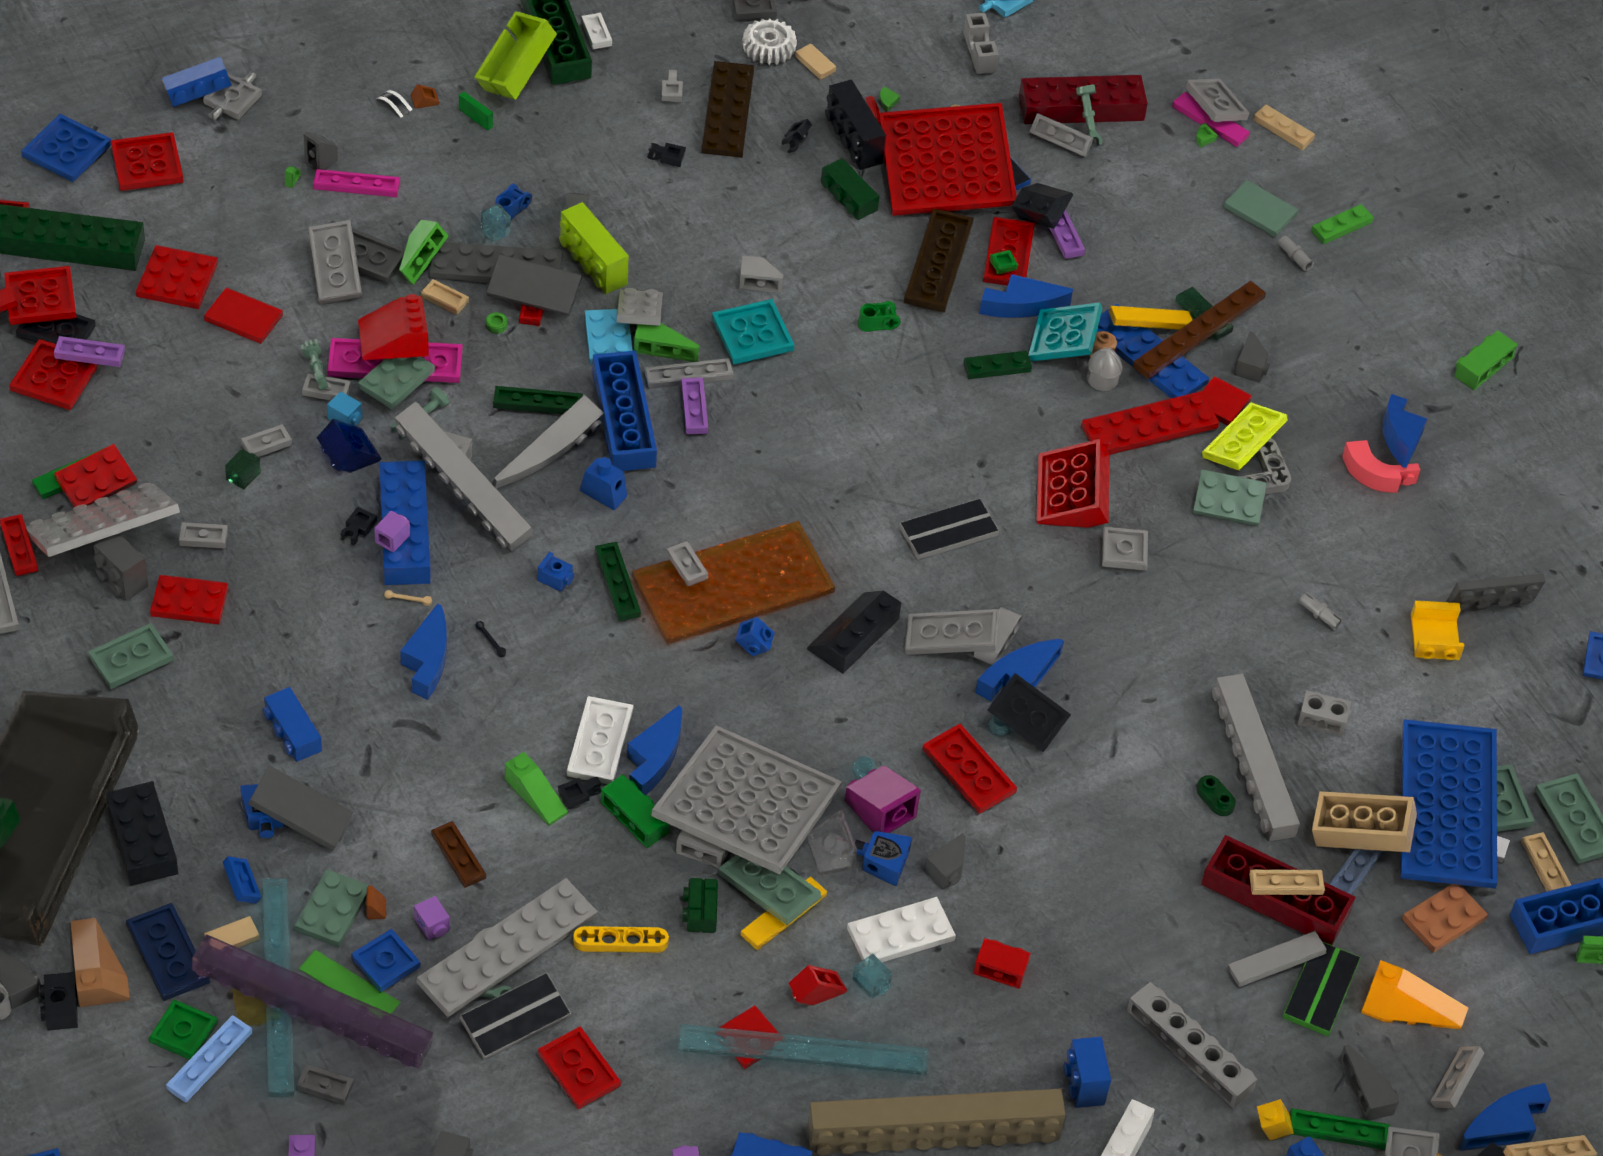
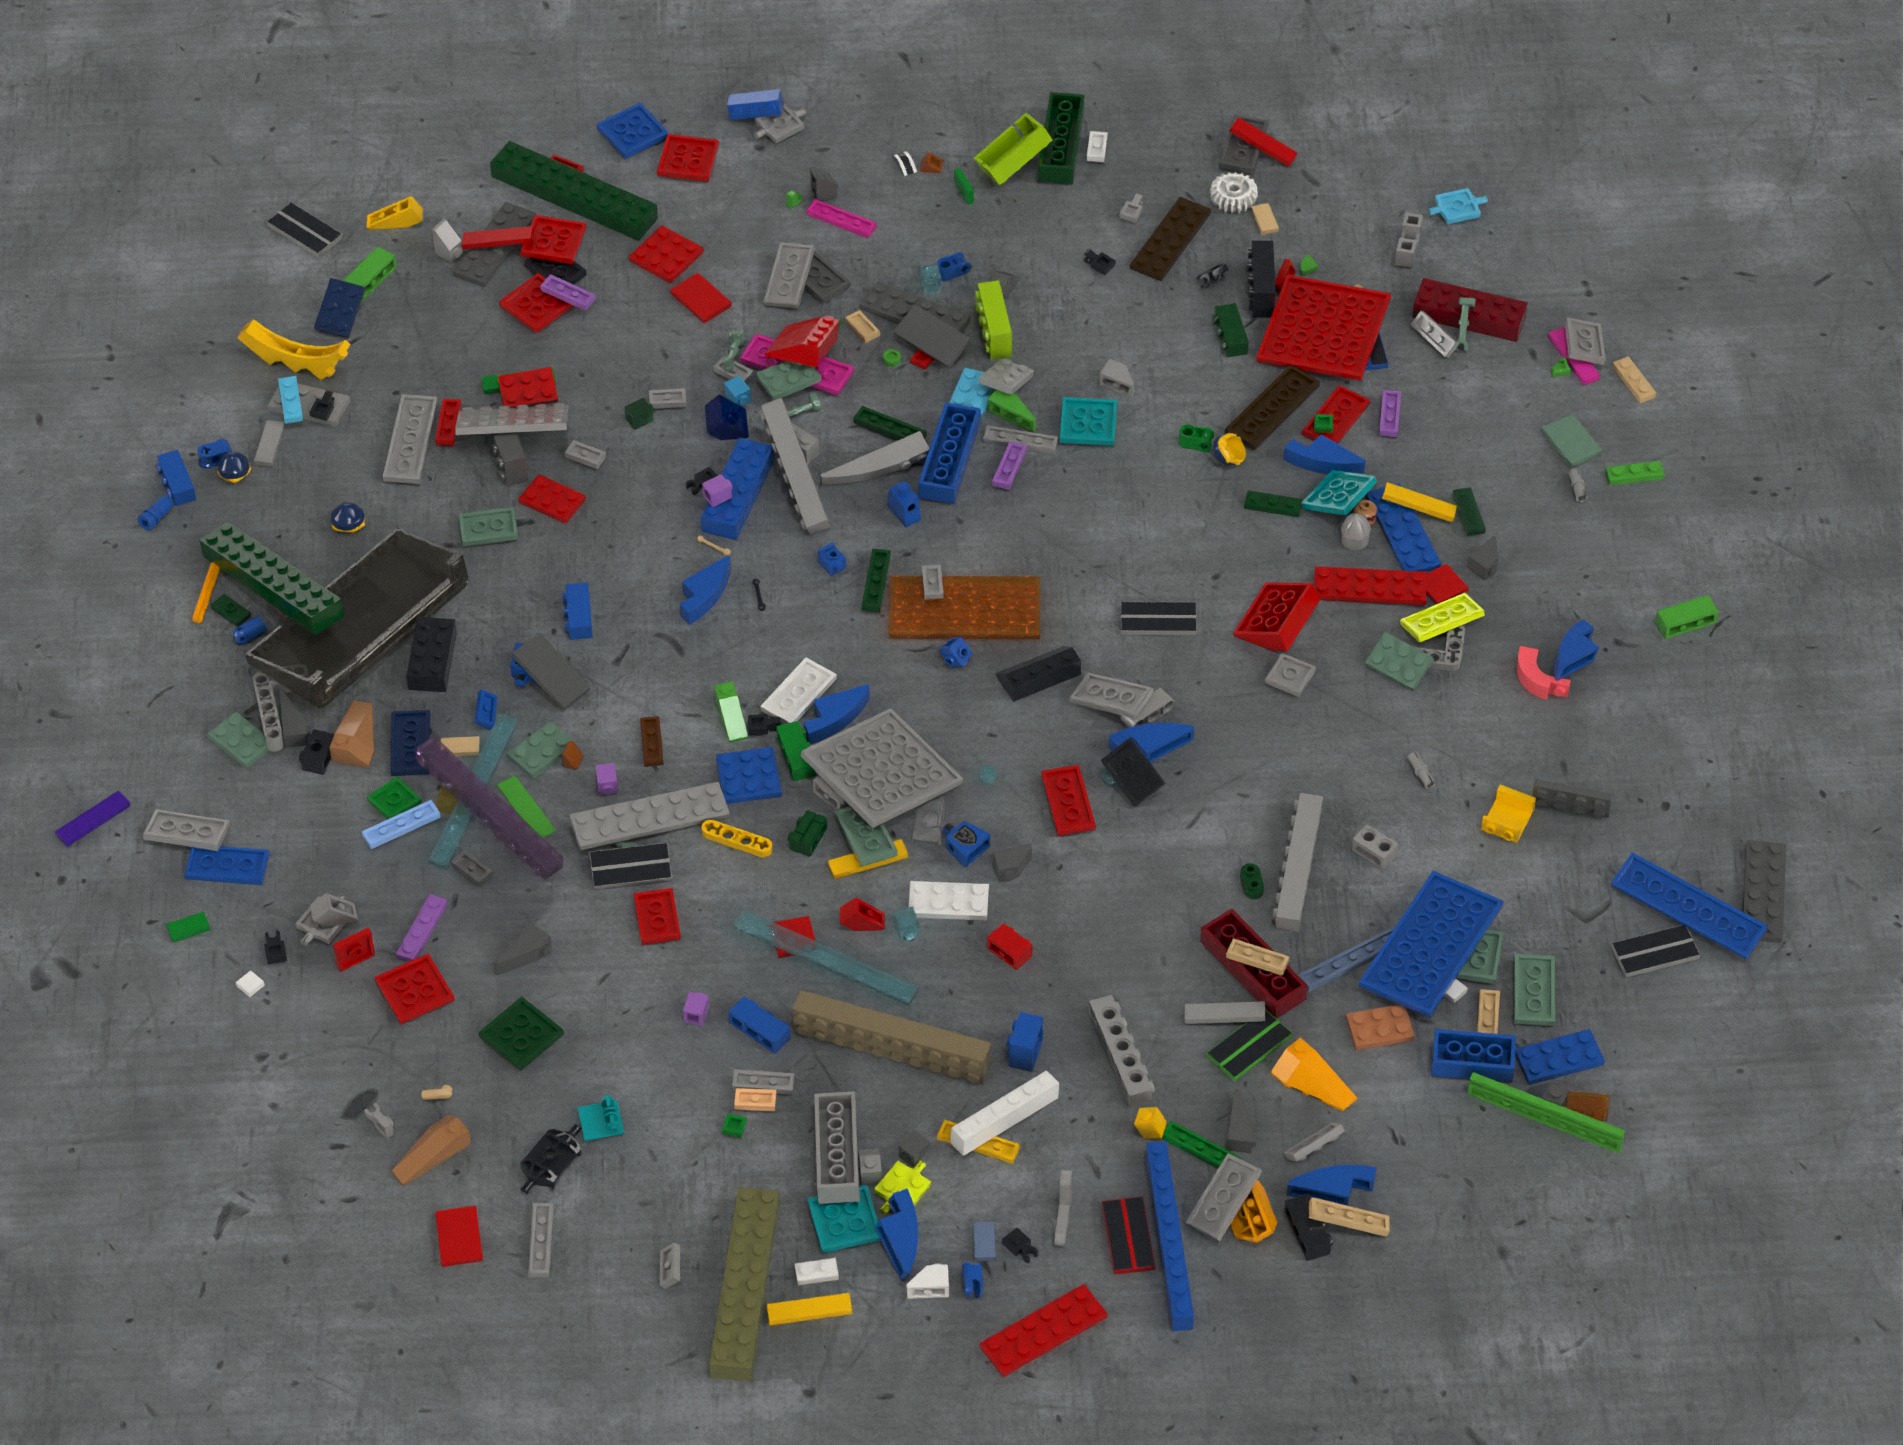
camera: 30 degrees right, 0 degrees up
(385, 960) = (559, 798): blue plate -> none
(421, 248) = (860, 284): bright green slope -> none
(594, 857) = (748, 775): none -> blue plate
(883, 799) = (986, 802): magenta slope -> none
(922, 319) = (1229, 449): none -> yellow hair
(1041, 204) = (1380, 384): black slope -> none
(1199, 329) = (1453, 522): reddish brown plate -> none
(1364, 821) = (1350, 934): tan brick -> none

